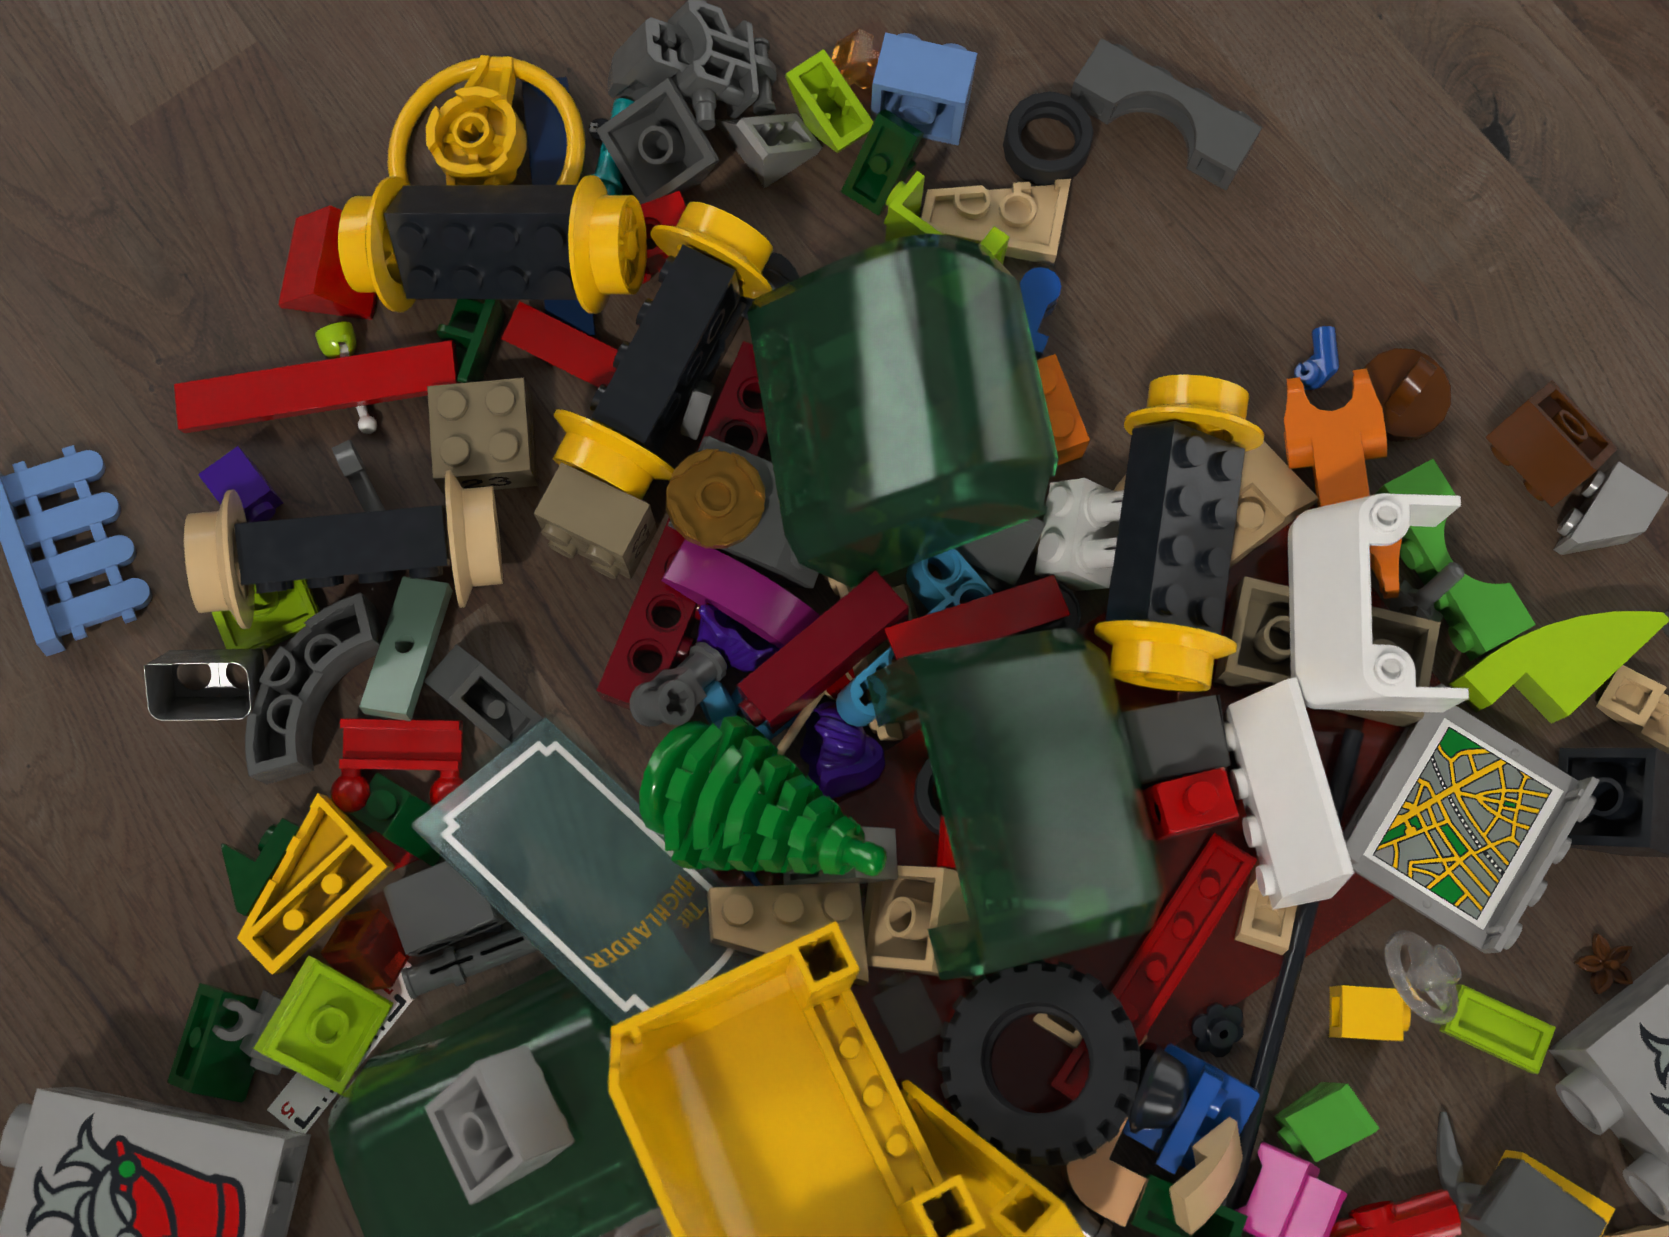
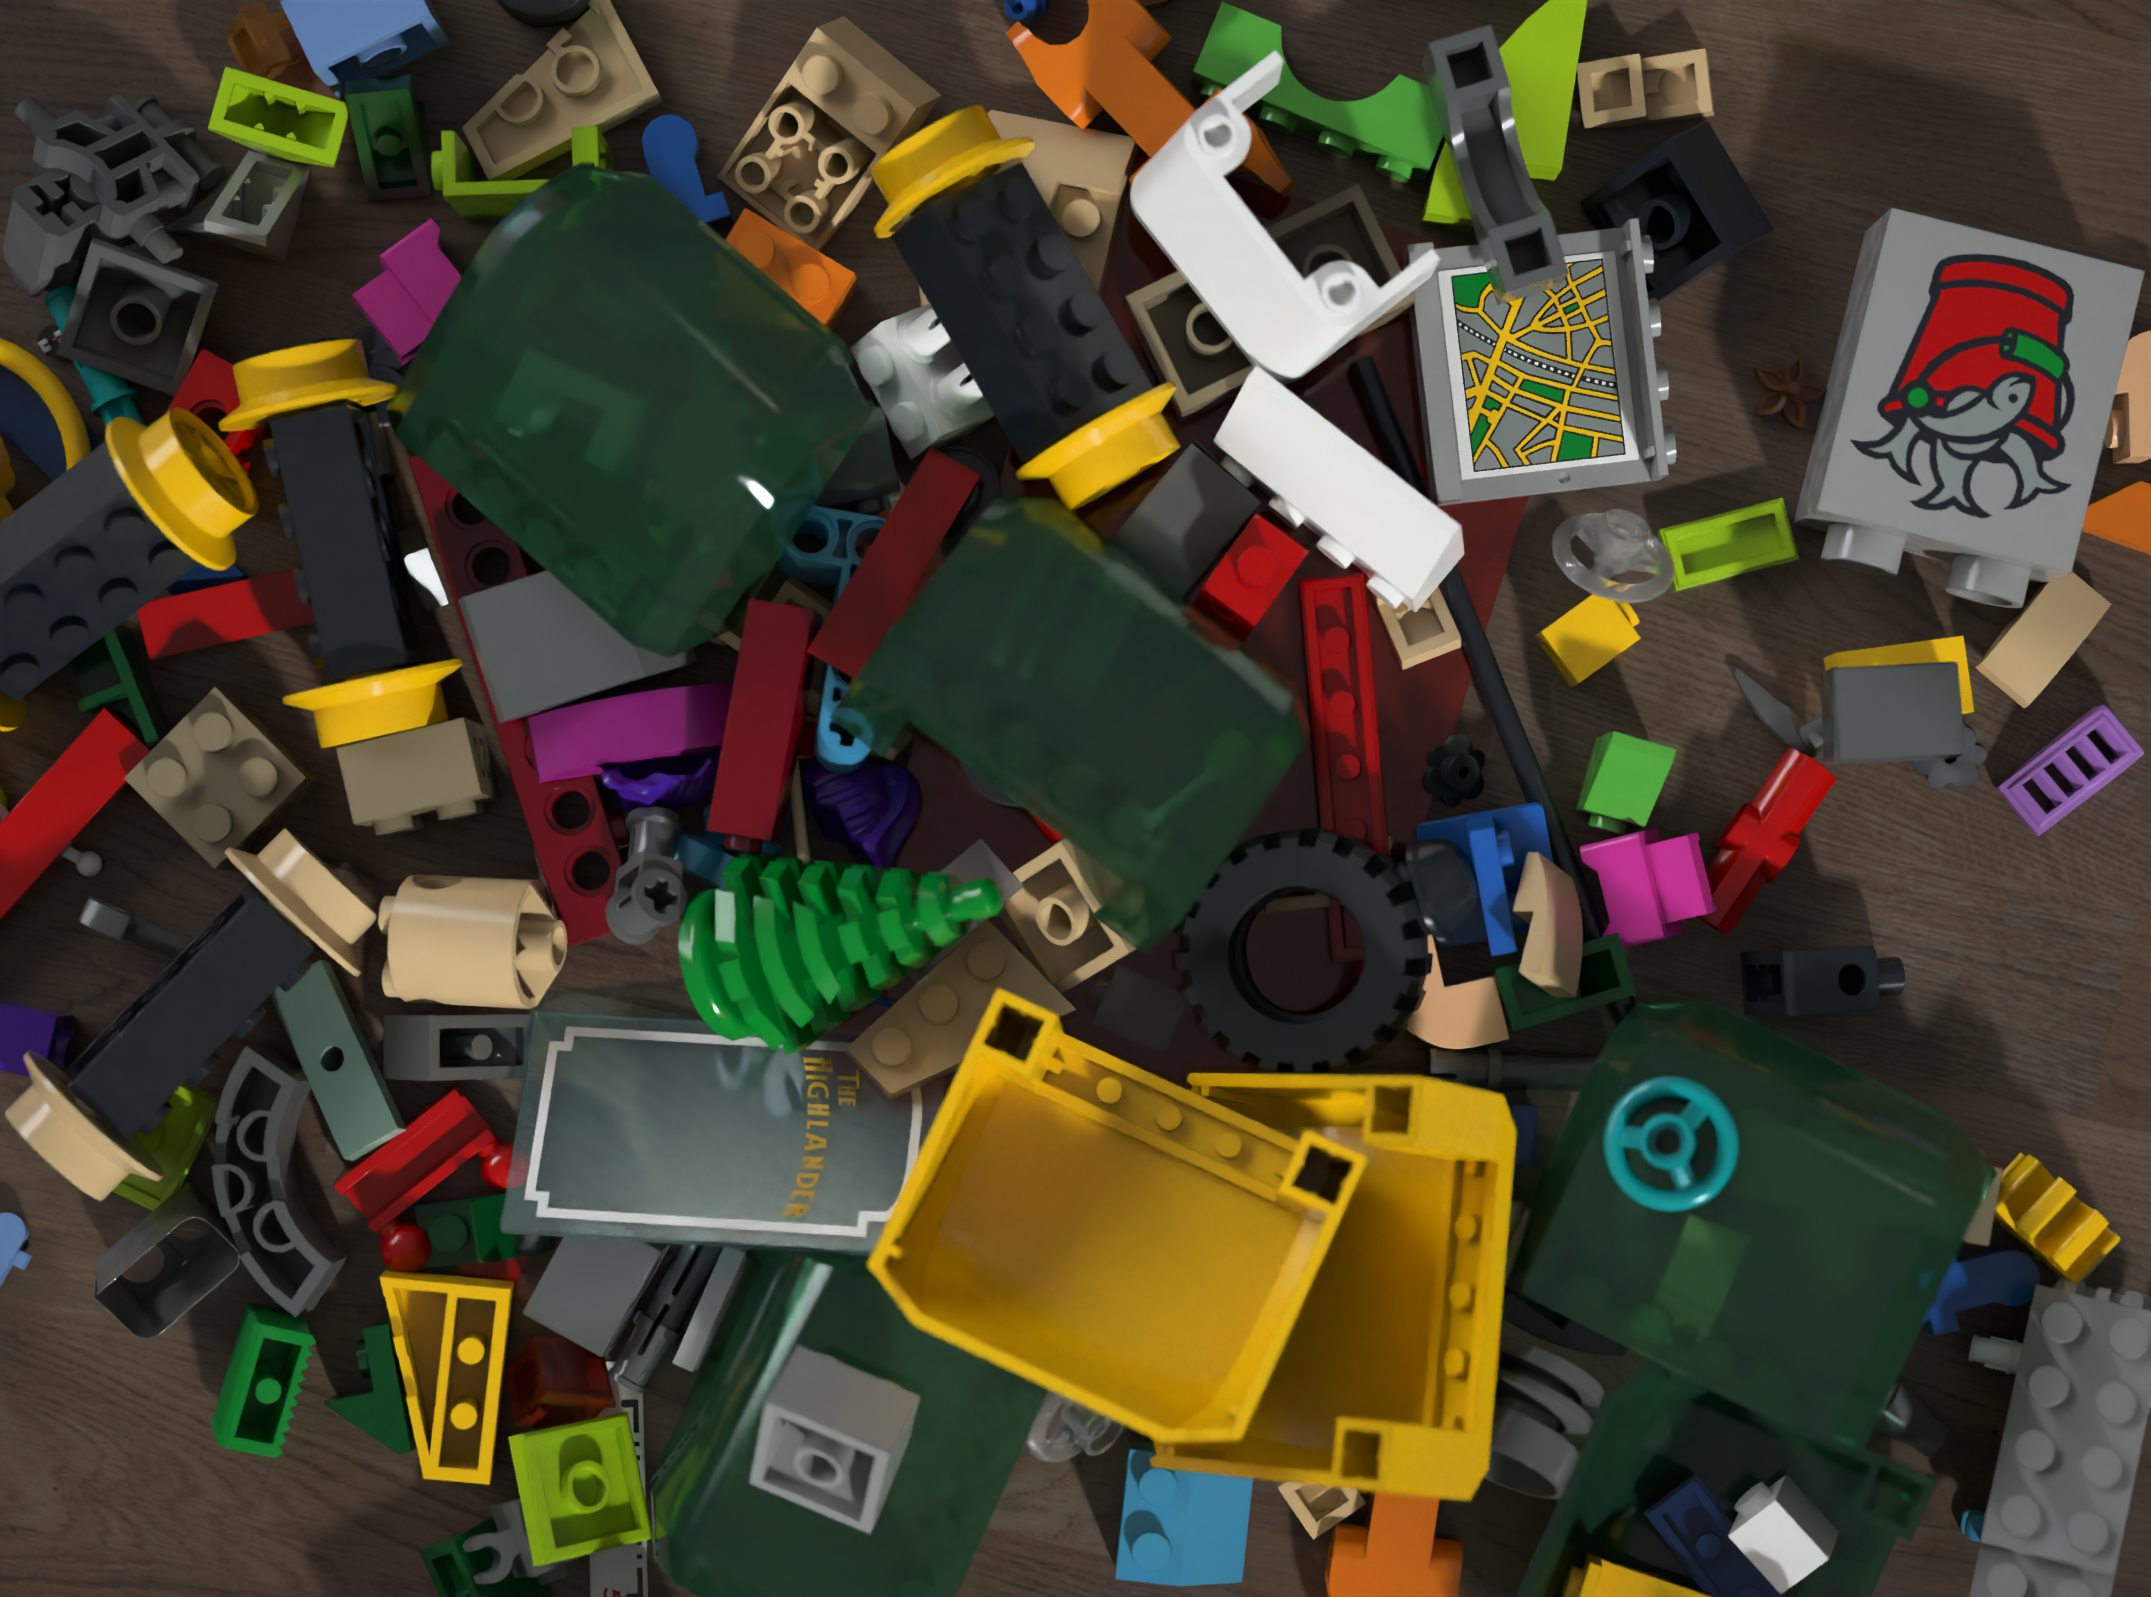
camera: 35 degrees left, 10 degrees up
(198, 800) = (262, 1381): none -> green brick
(497, 981) = (712, 1308): none -> light grey tile
(542, 641) = (471, 941): none -> tan cylinder
(715, 499) = (525, 657): pearl gold tile -> none
(813, 249) = (409, 291): none -> dark pink piece
(1124, 349) = (825, 130): none -> tan slope
(1429, 593) = (1326, 159): dark grey bar -> none
(1517, 717) = (1482, 138): none -> dark grey arch

